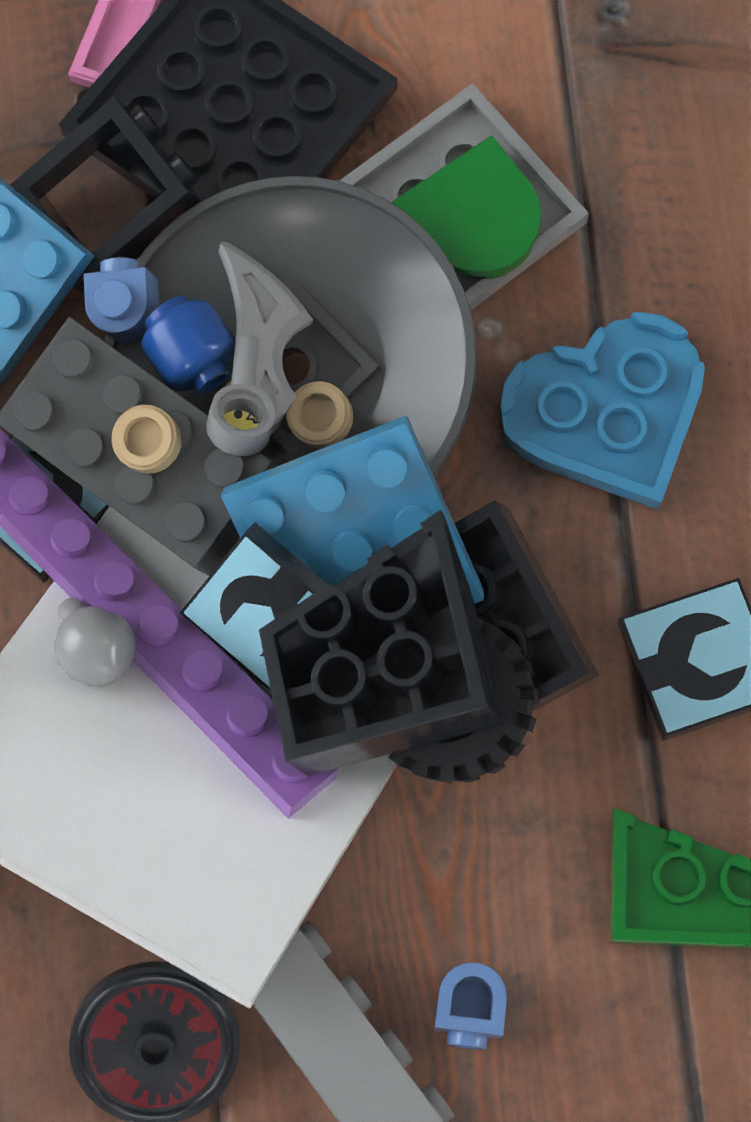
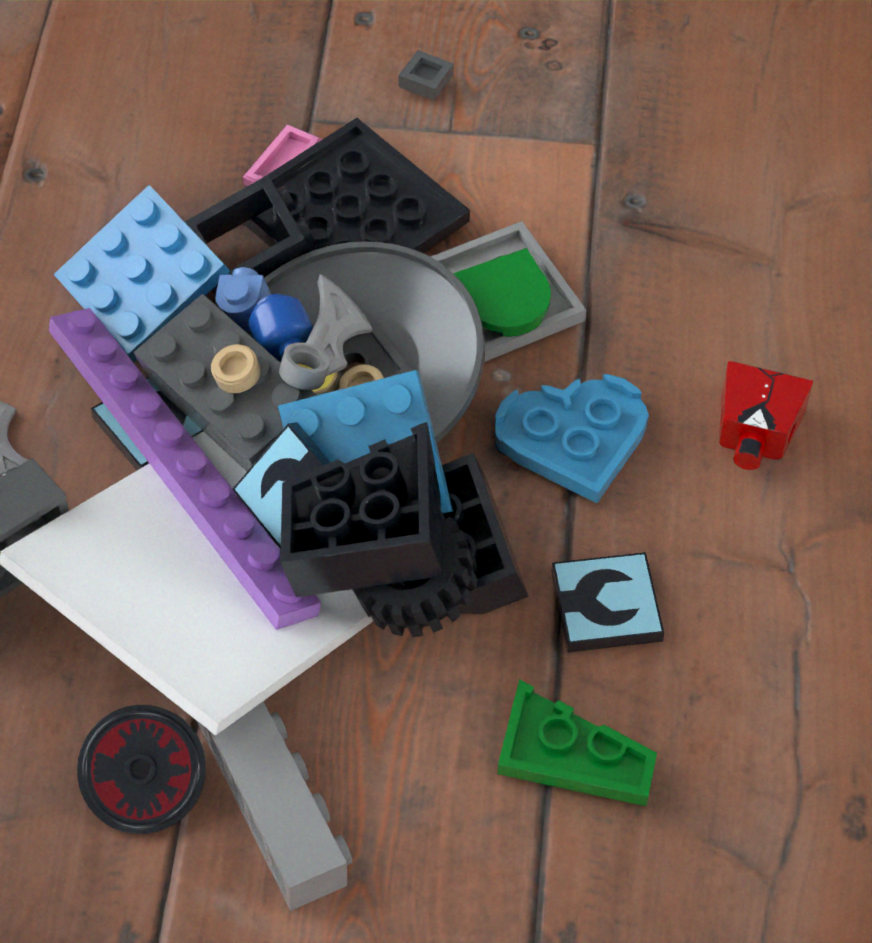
camera: 10 degrees right, 20 degrees down
(93, 643) = (166, 493): light grey piece -> none
(471, 1006) = (380, 788): medium blue plate -> none

